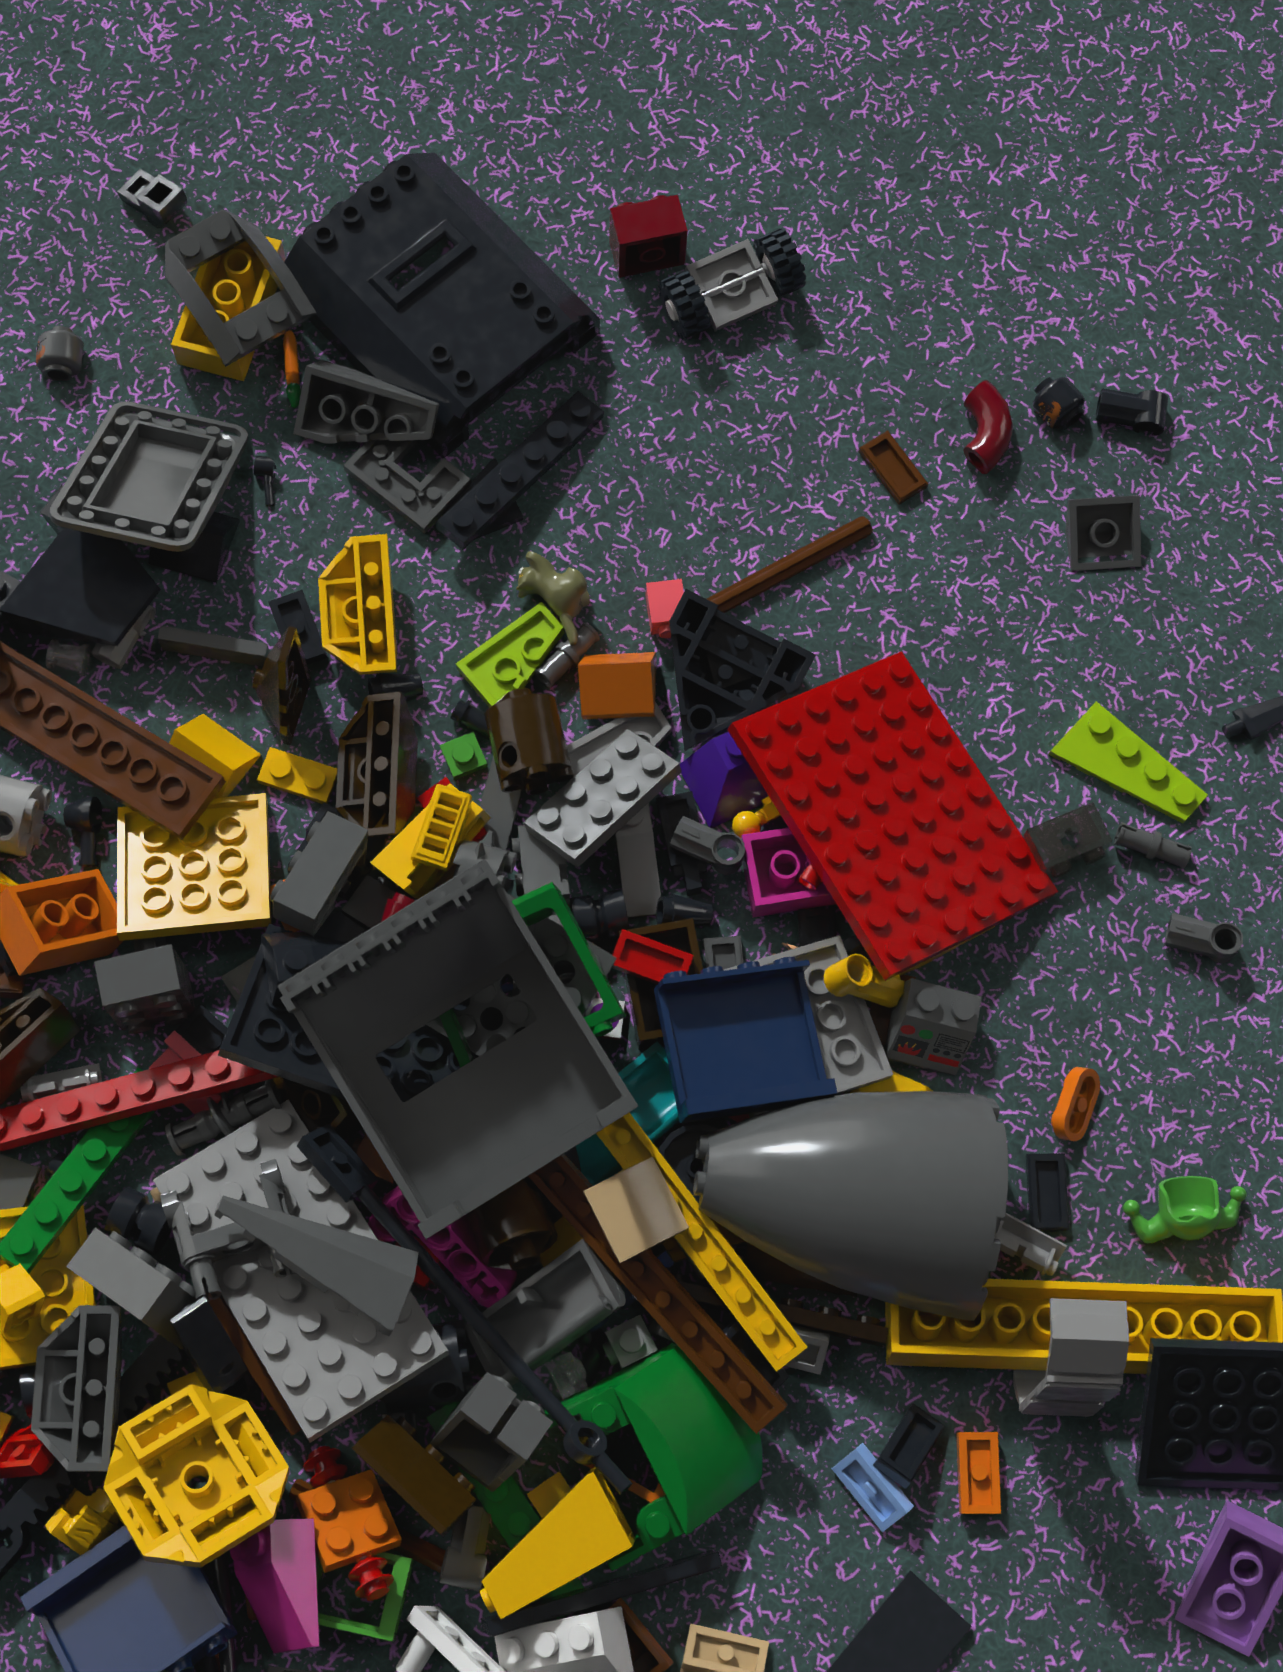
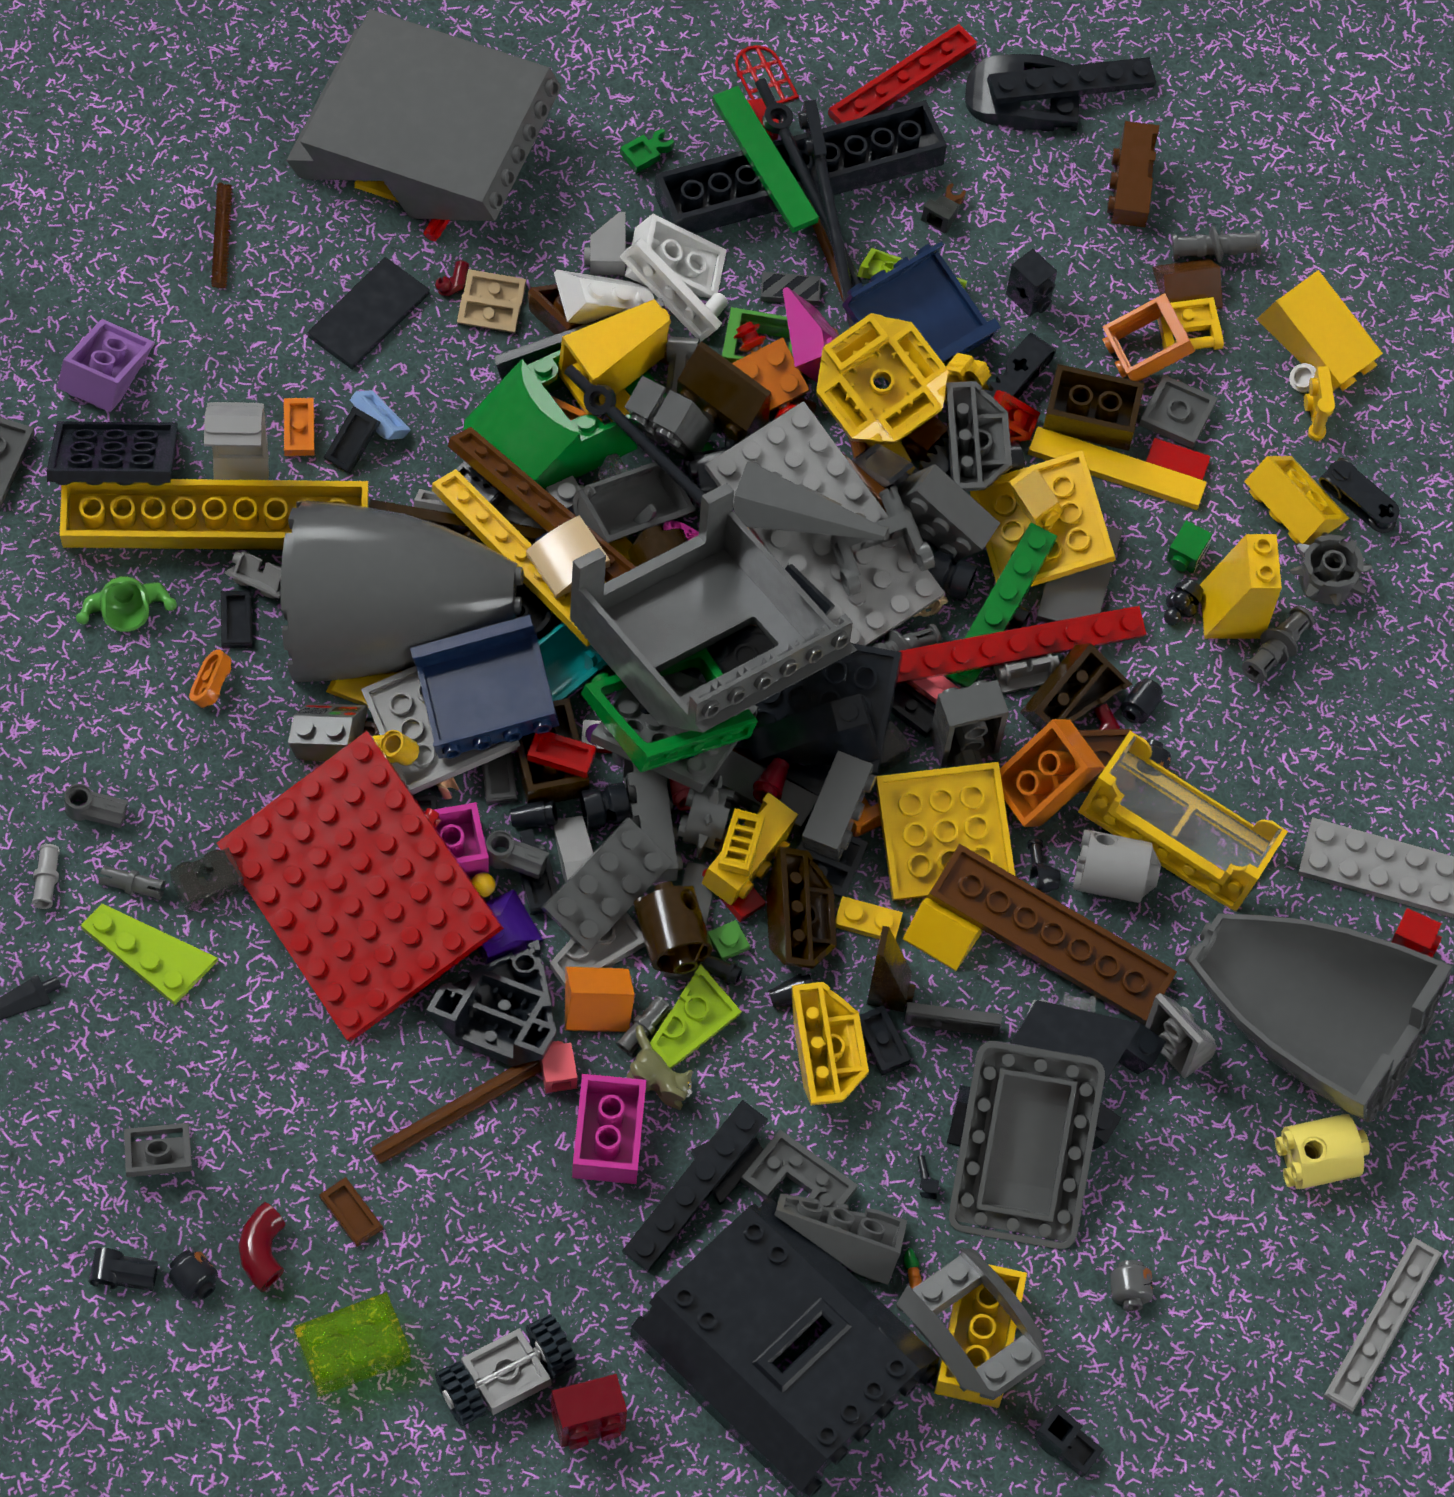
camera: 175 degrees right, 10 degrees down
(613, 529) = (609, 1129): none -> dark pink brick
(891, 321) = (352, 1344): none -> clear neon green brick
(1252, 855) = (45, 876): none -> light grey pin

